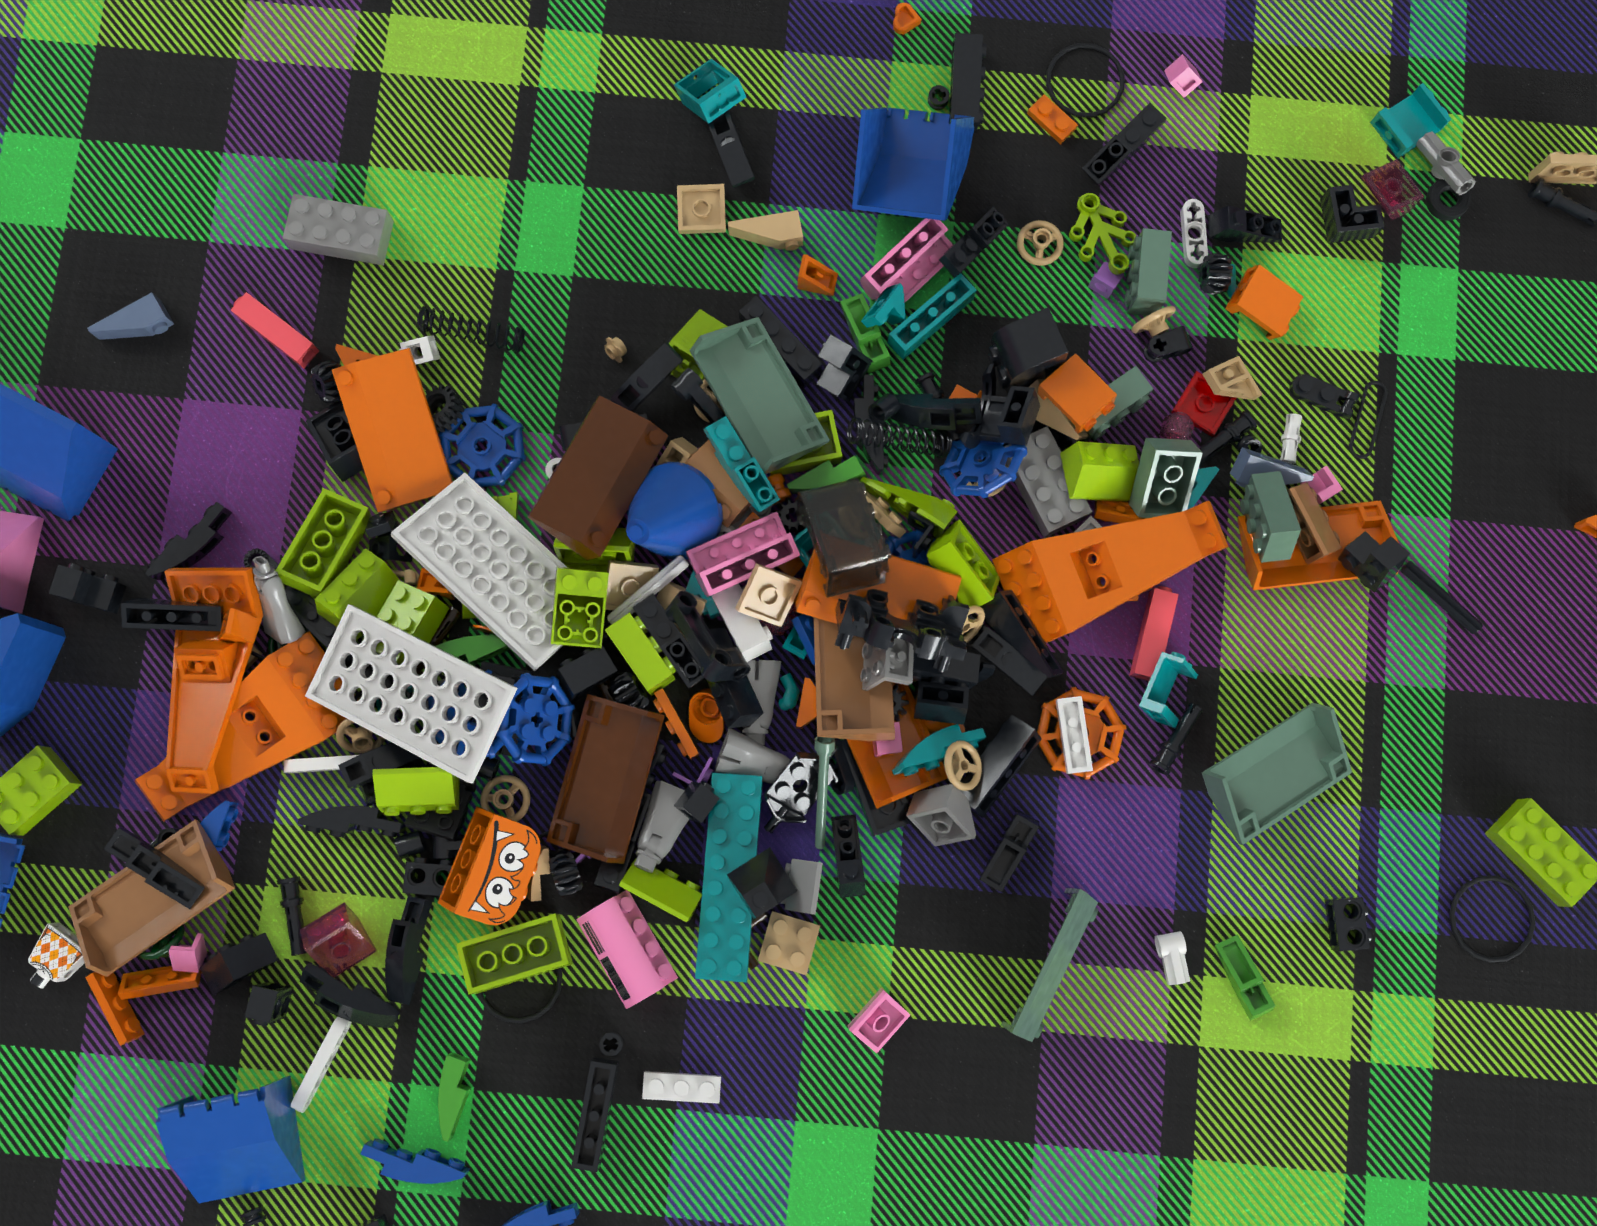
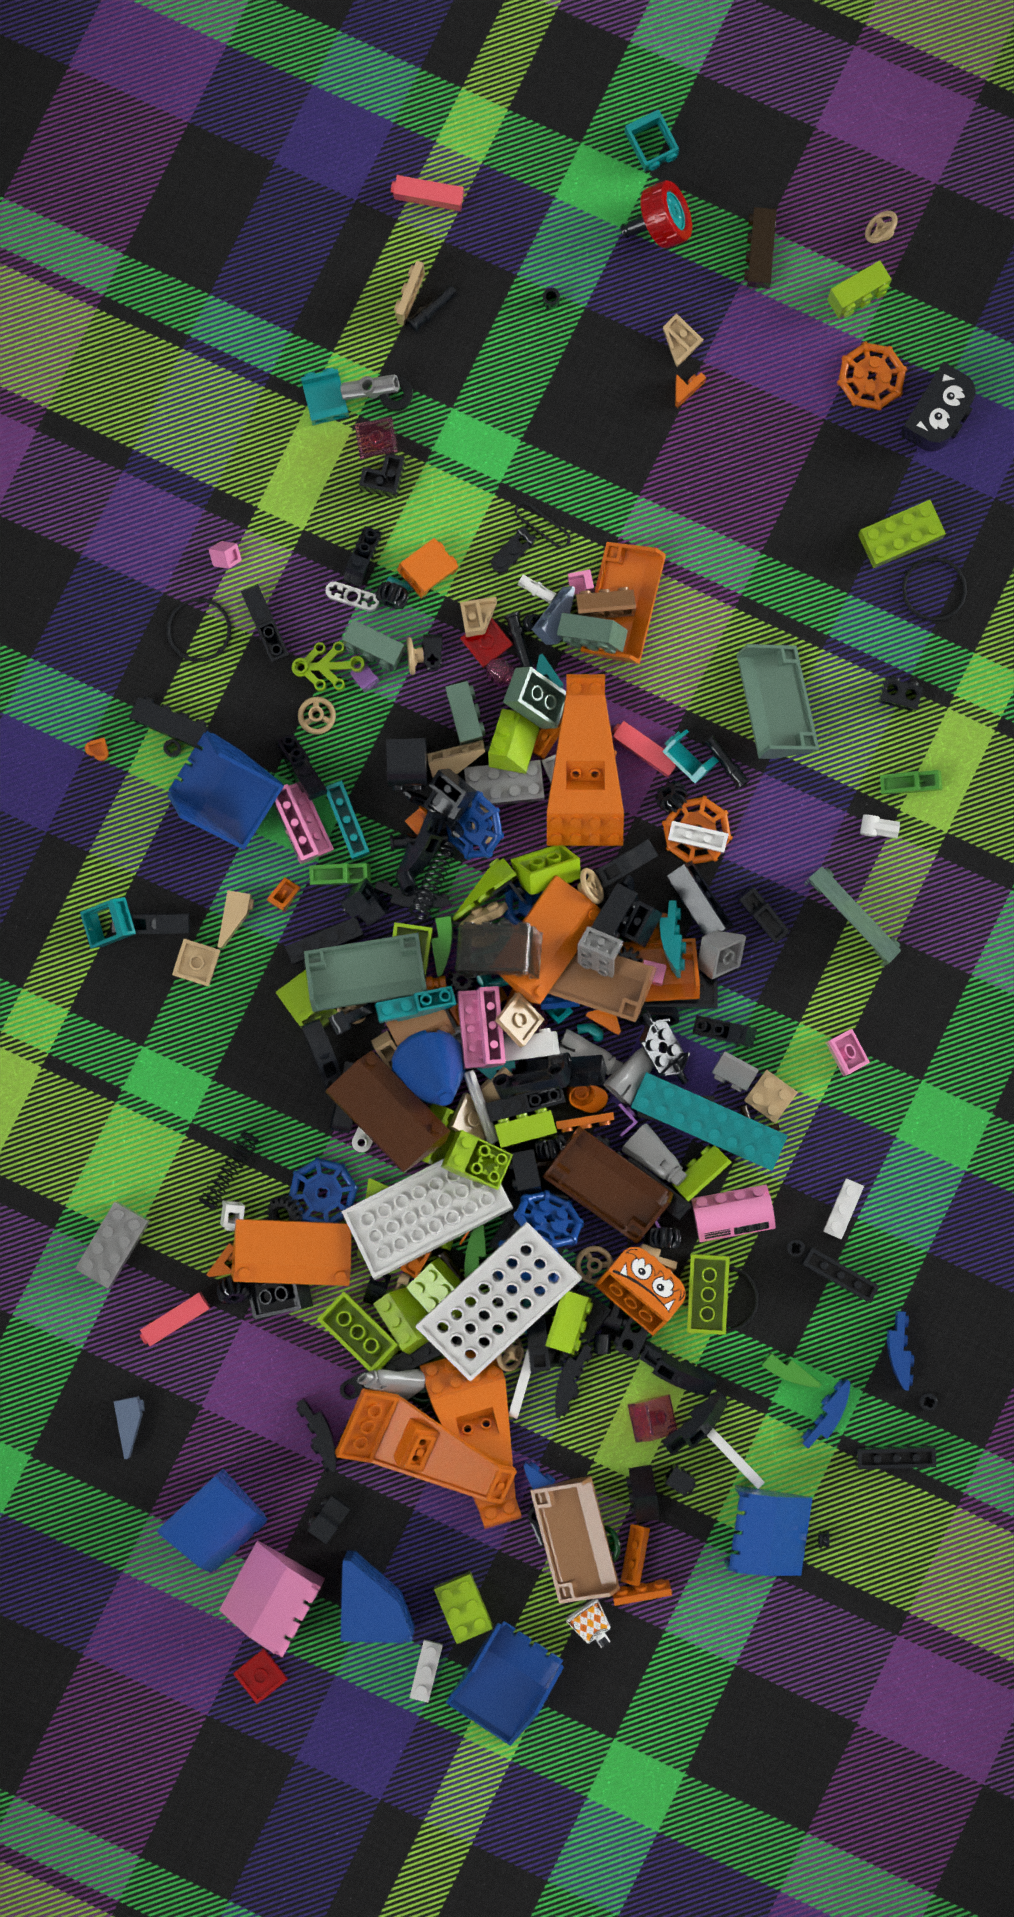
camera: 60 degrees left, 5 degrees up
(155, 867) = (554, 1529): black slope -> none
(170, 615) = (371, 1462): black slope -> none
(189, 957) = (626, 1528): bright pink panel -> none
(238, 627) = (401, 1414): orange slope -> none
(292, 903) = (614, 1443): black pin -> none
(381, 524) = (358, 1286): black bracket -> none
(615, 349) = (284, 1067): tan plate -> none
(697, 801) = (648, 1125): black brick -> none
(761, 883) = (723, 1099): black slope -> none
(824, 748) = (645, 1020): sand green piece -> none
(888, 307) = (329, 852): teal slope -> none
(931, 631) = (589, 914): black gear -> none
(957, 765) = (690, 928): tan piece -> none
(1013, 624) = (602, 849): black slope -> none
(1052, 119) = (221, 667): orange plate -> none
(1078, 393) = (453, 739): orange panel -> none
(1110, 686) = (671, 796): none -> black gear
(1373, 562) = (651, 571): black brick -> none
(1441, 597) = (694, 528): black axle -> none

